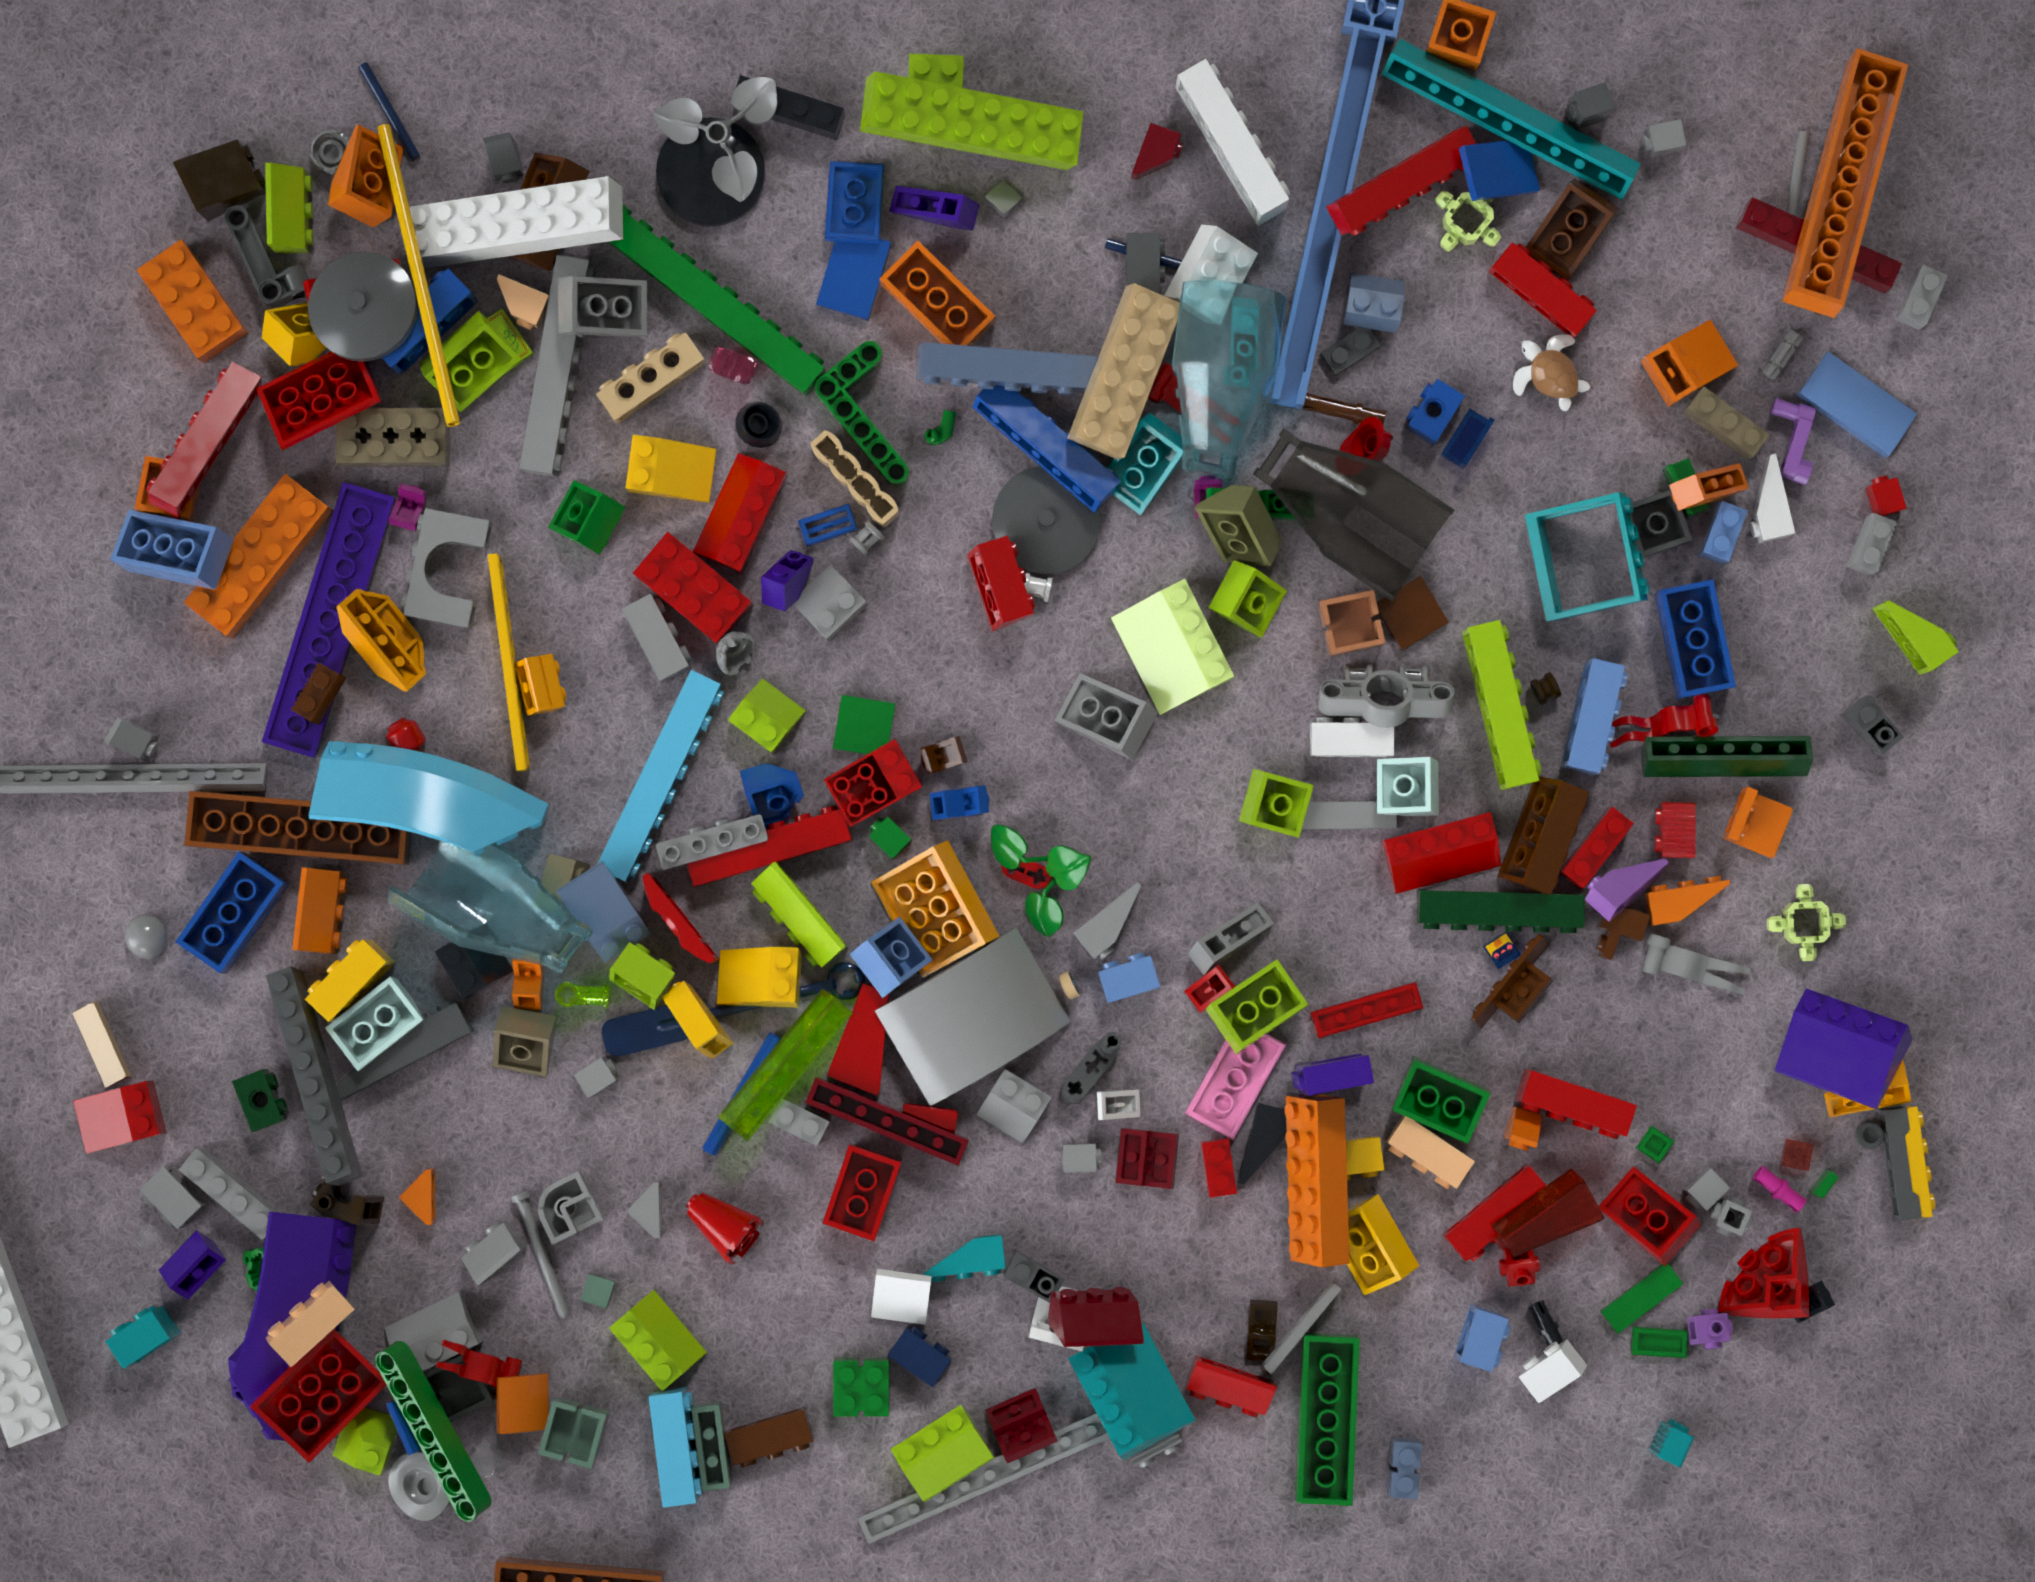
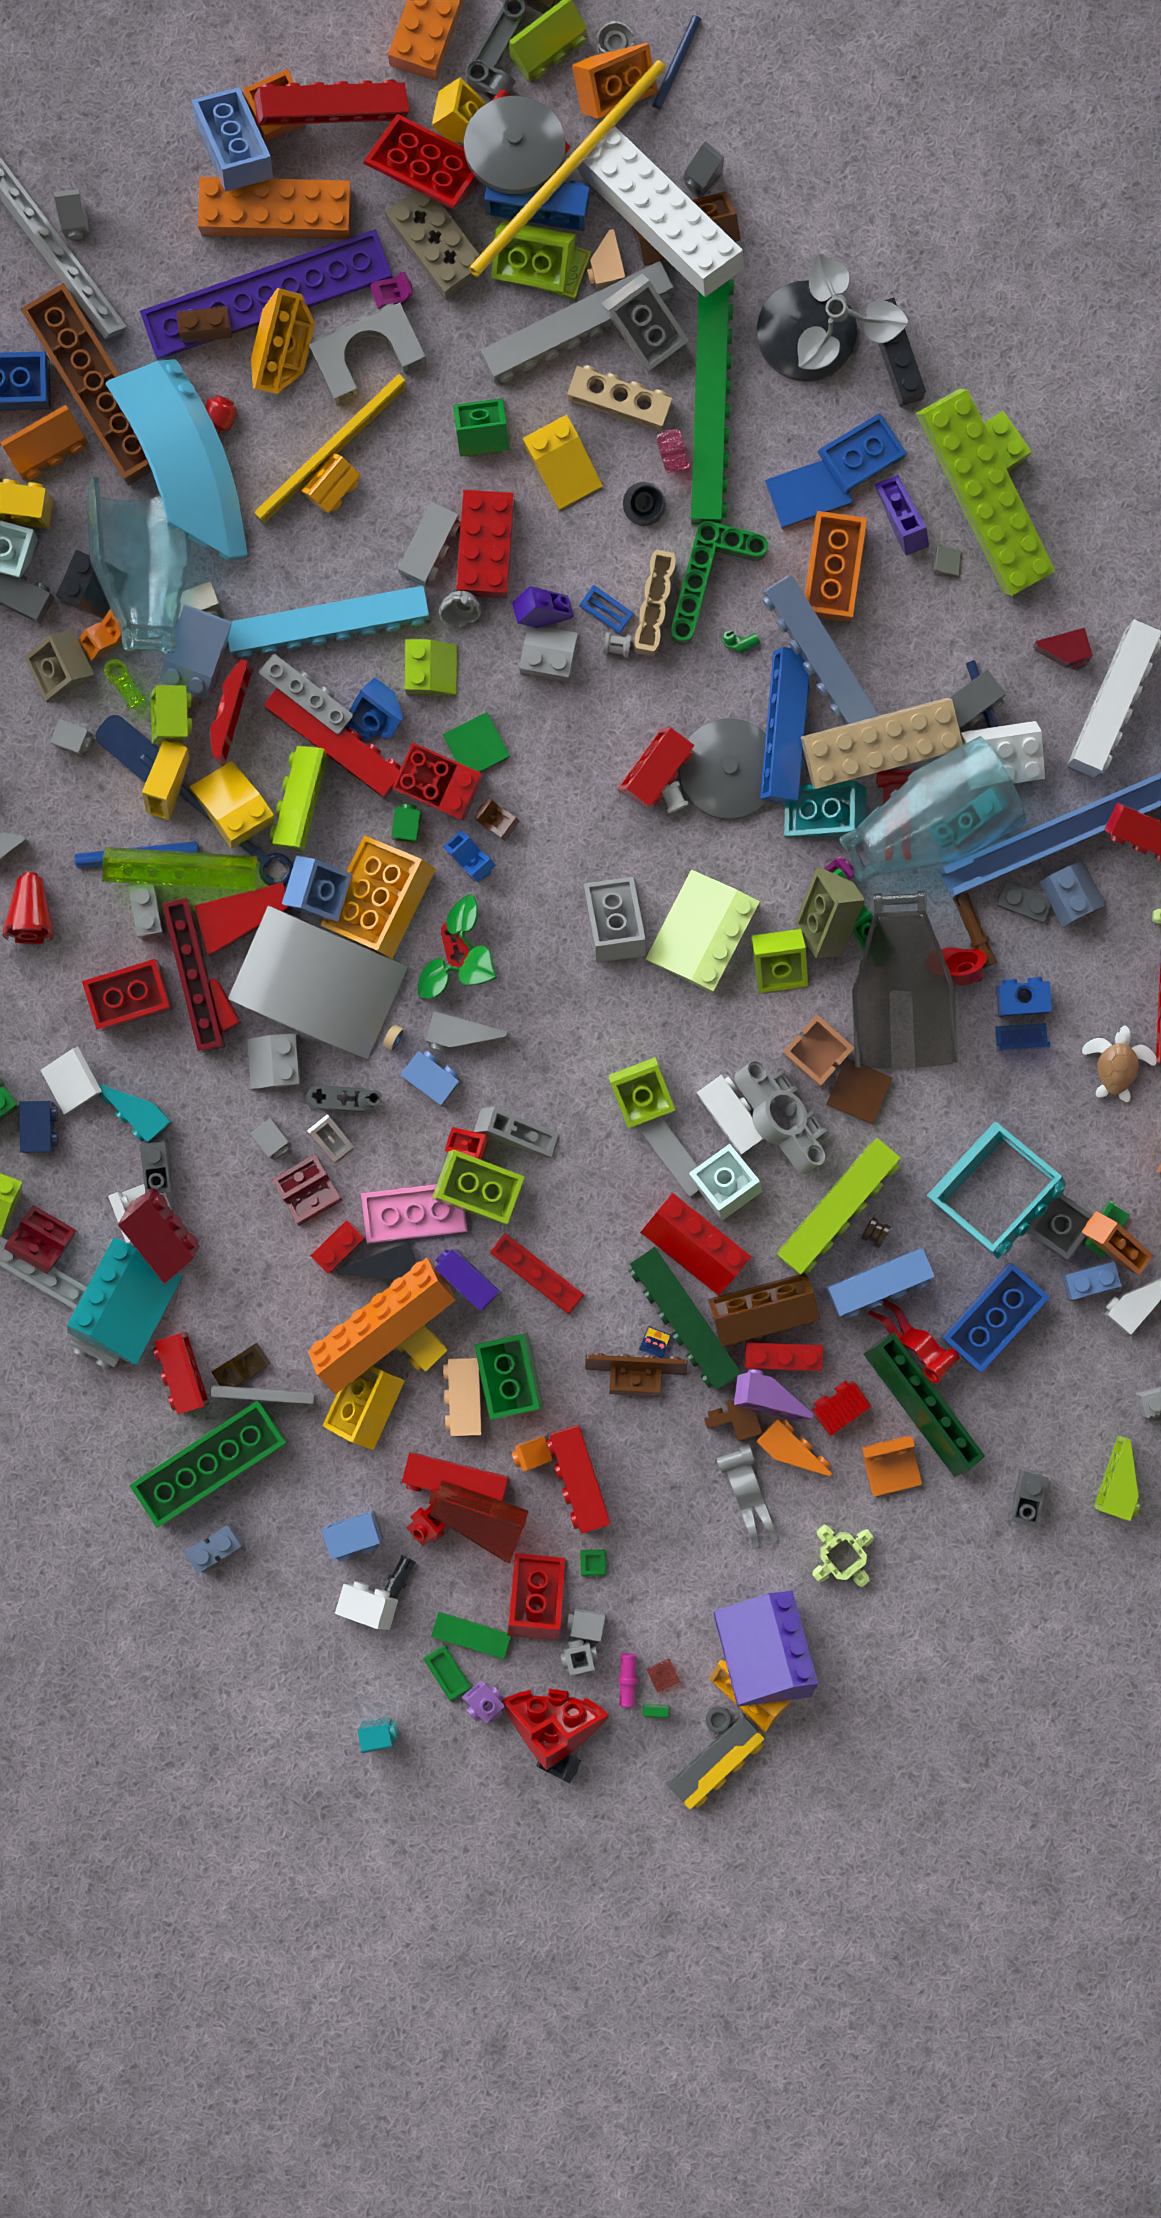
camera: 55 degrees right, 0 degrees up
(740, 512) = (568, 539): red slope -> none

